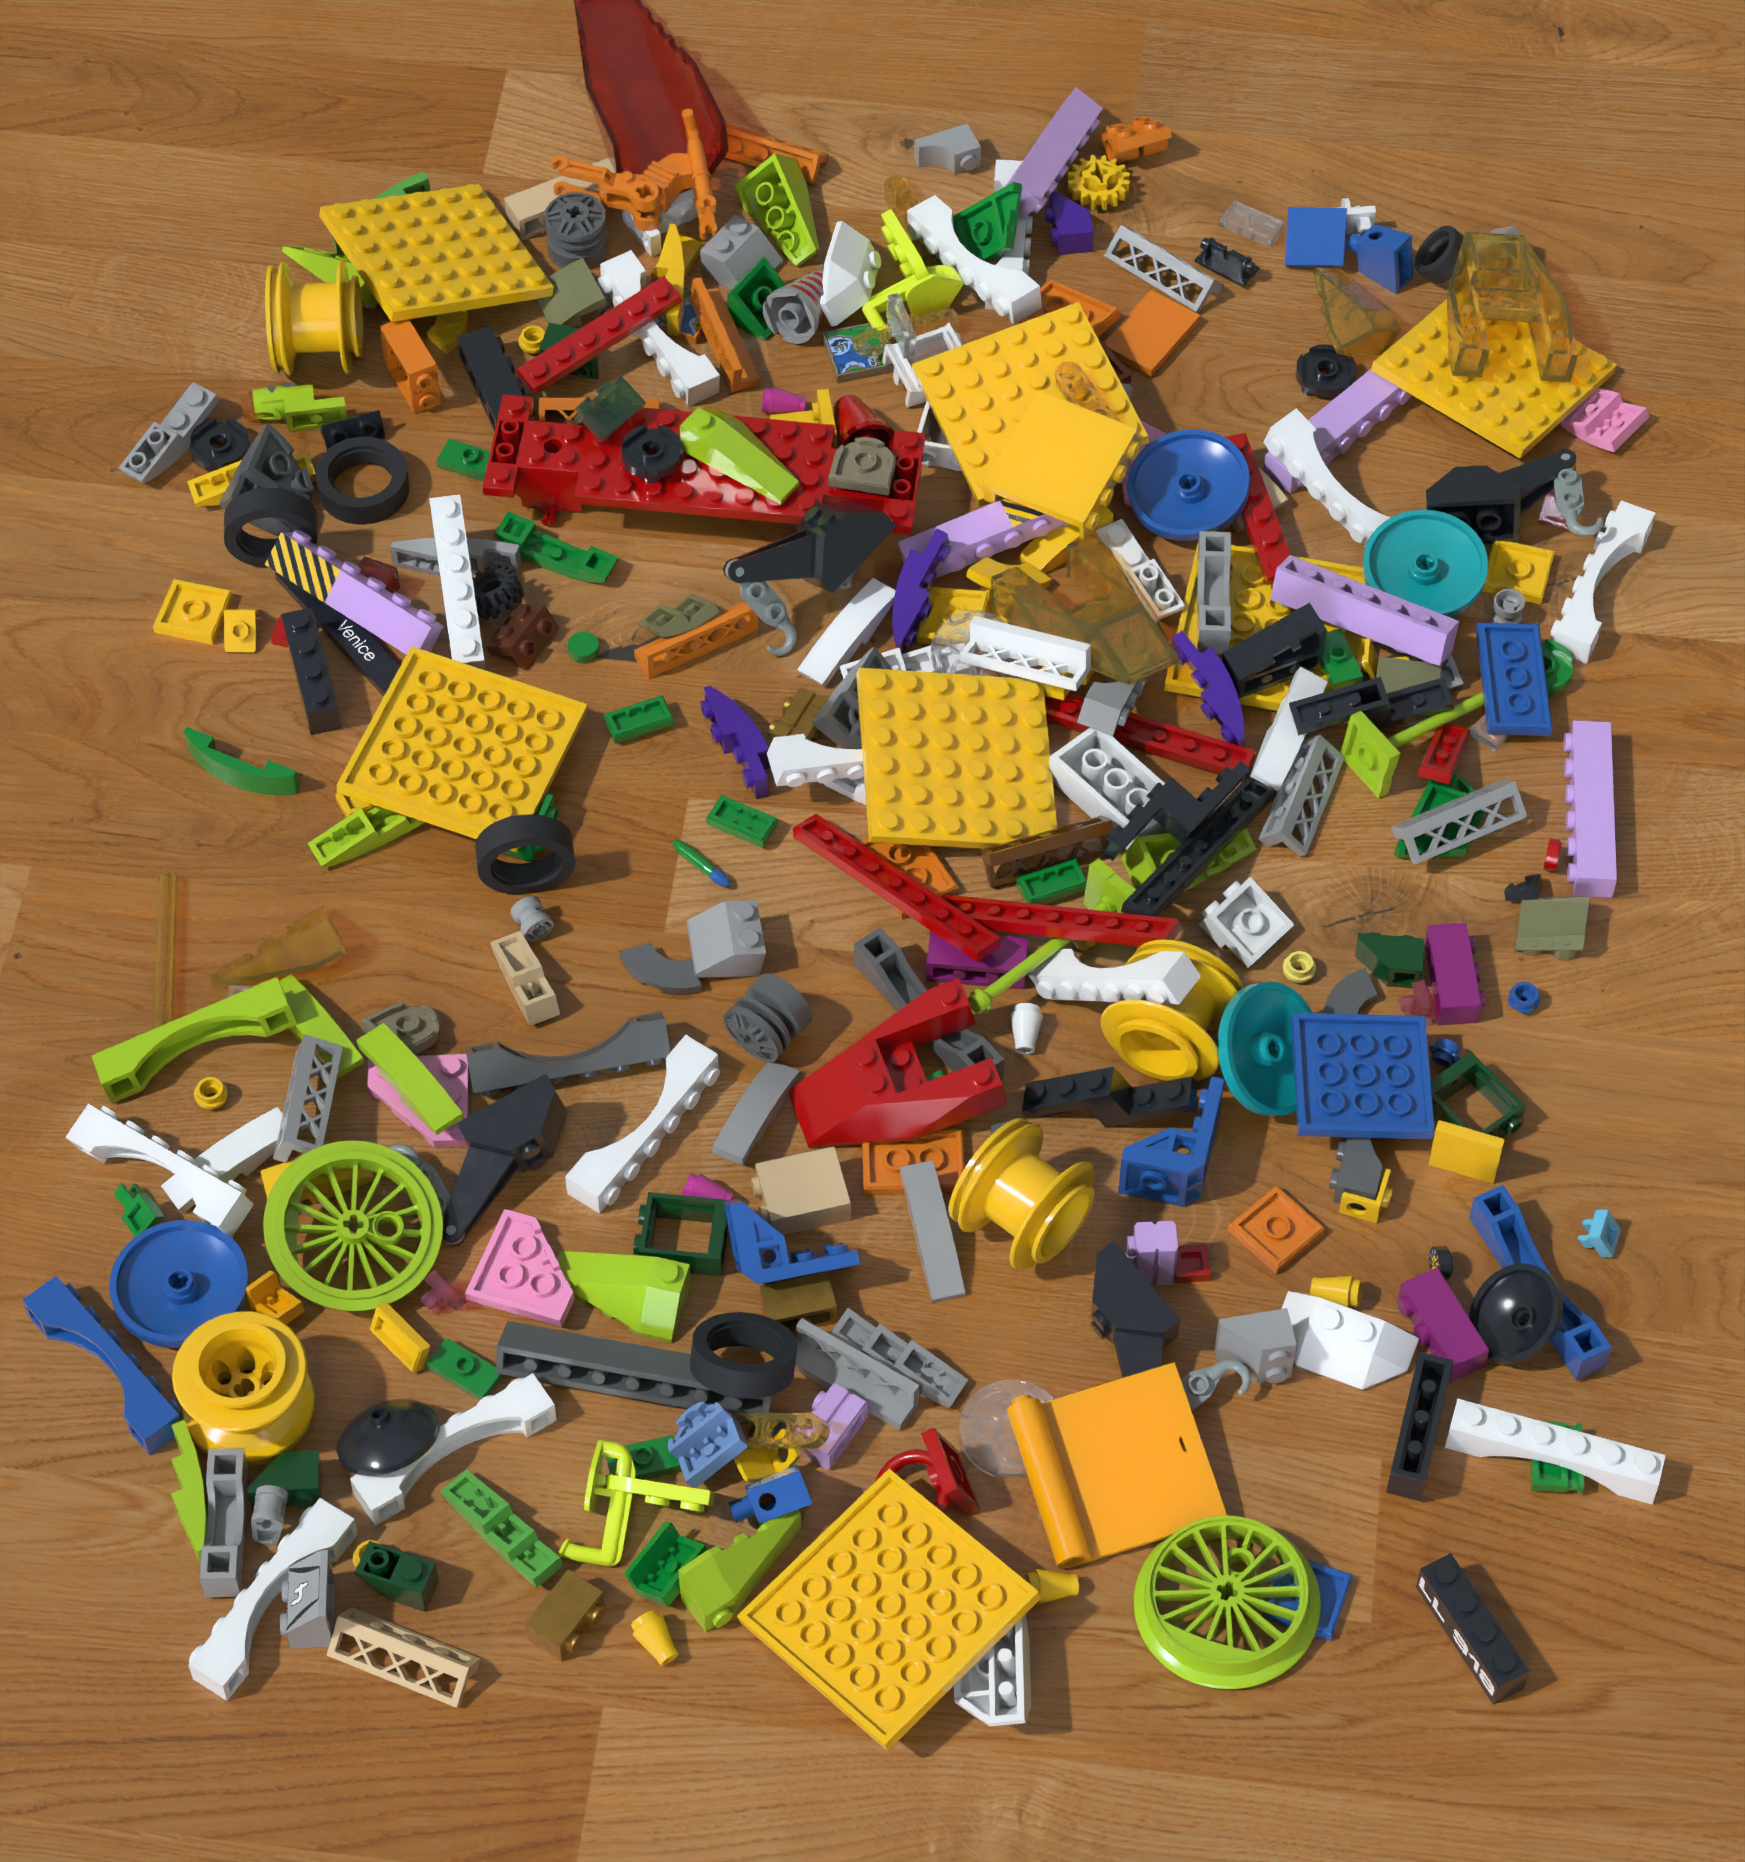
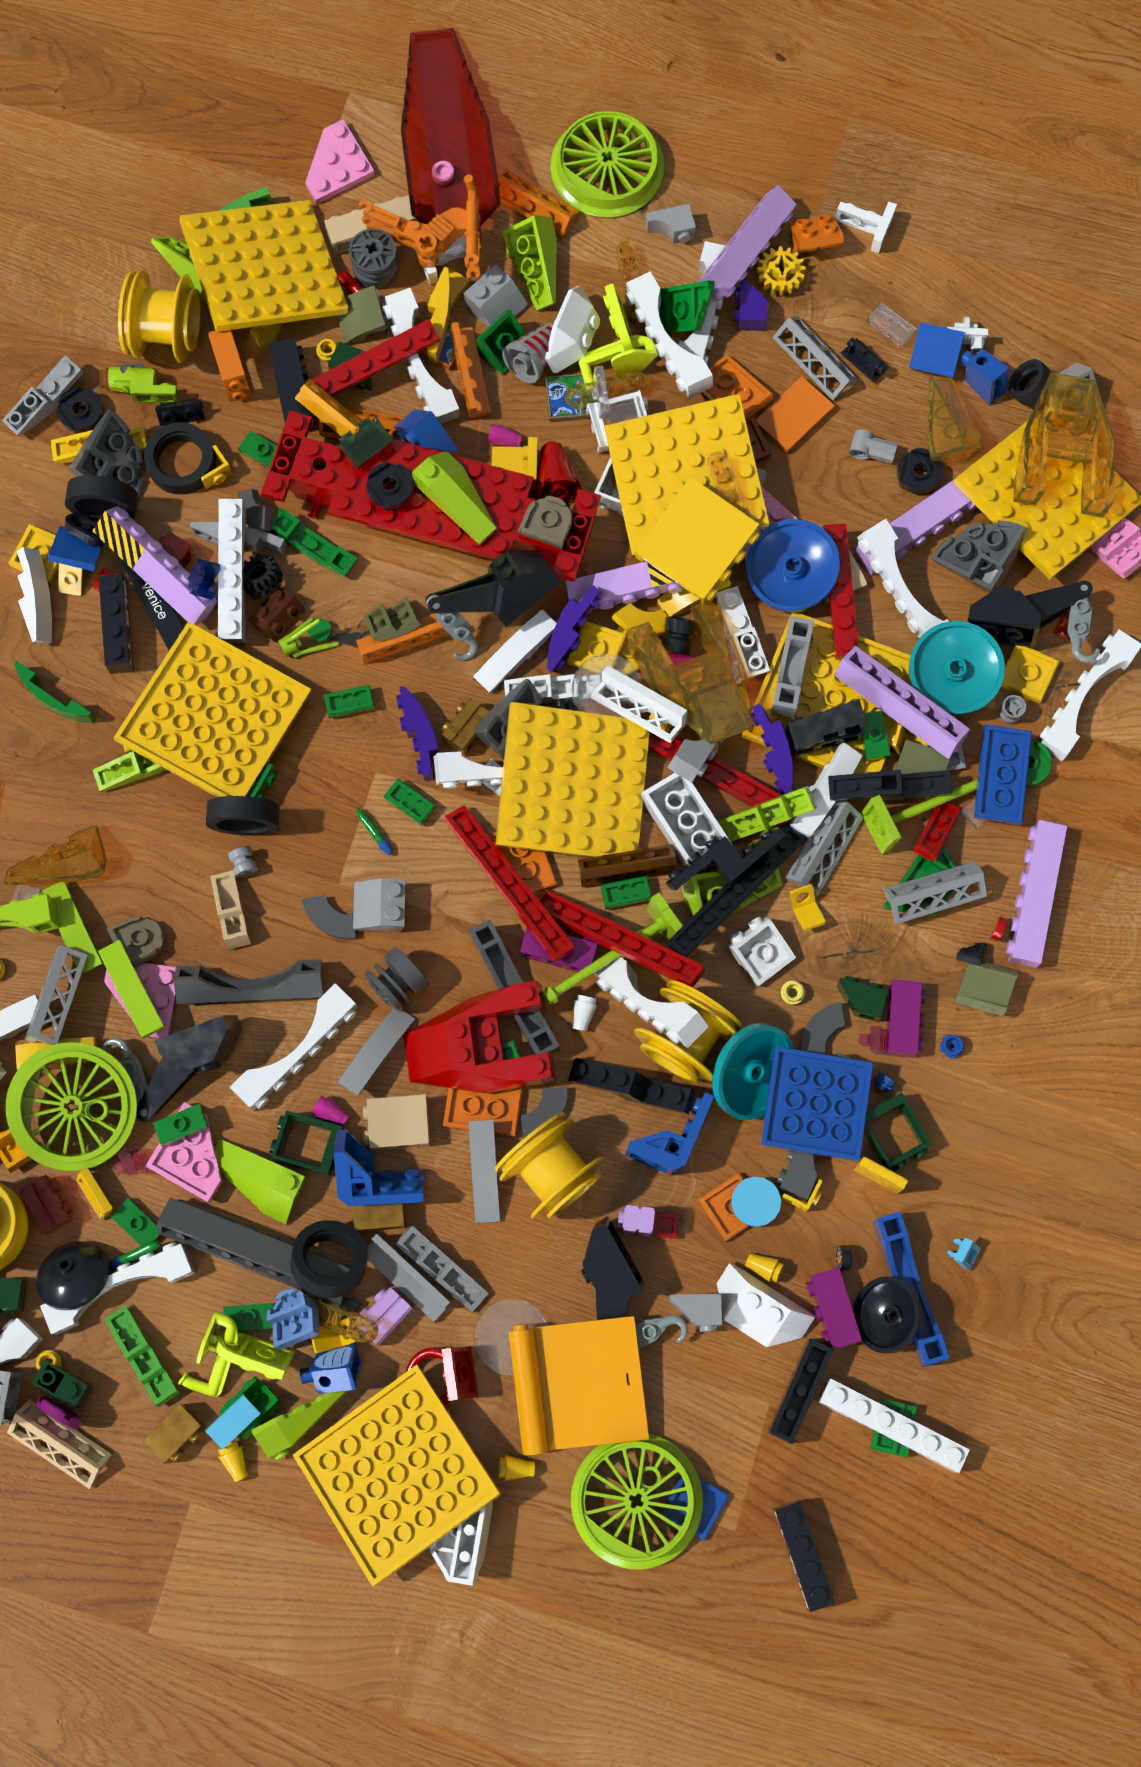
camera: 10 degrees right, 20 degrees up
(200, 659) = (37, 602): none -> white slope
(244, 593) = (73, 552): none -> blue tile
(245, 567) = (82, 528): none -> black plate
(337, 1361) = (46, 1204): none -> clear red brick
(399, 1607) = (59, 1412): none -> magenta tile
(416, 490) = (219, 474): none -> yellow bracket
(422, 592) = (202, 578): none -> clear blue panel
(471, 1401) = (134, 1254): none -> green piece
(479, 523) = (257, 515): none -> dark grey tile
(506, 1233) = (180, 1125): none -> green plate
(507, 143) = (337, 163): none -> bright pink plate
(545, 392) = (327, 408): none -> light orange fence
(546, 262) = (349, 282): none -> red arm
(549, 664) = (291, 643): none -> lime plant
(645, 134) = (443, 172): none -> bright pink tile
(647, 1578) = (232, 1421): none -> medium azure tile
(682, 392) = (424, 430): none -> blue slope
(852, 97) = (607, 162): none -> lime piece
(1057, 577) = (678, 632): none -> black wheel
(1195, 117) = (867, 221): none -> white bracket
(1246, 746) = (768, 813): none -> lime slope
(1250, 352) = (867, 446): none -> light grey piece
(1294, 871) = (806, 910): none -> yellow bracket
(1307, 1212) = (756, 1201): none -> medium azure tile
(1426, 442) = (982, 553): none -> dark grey brick

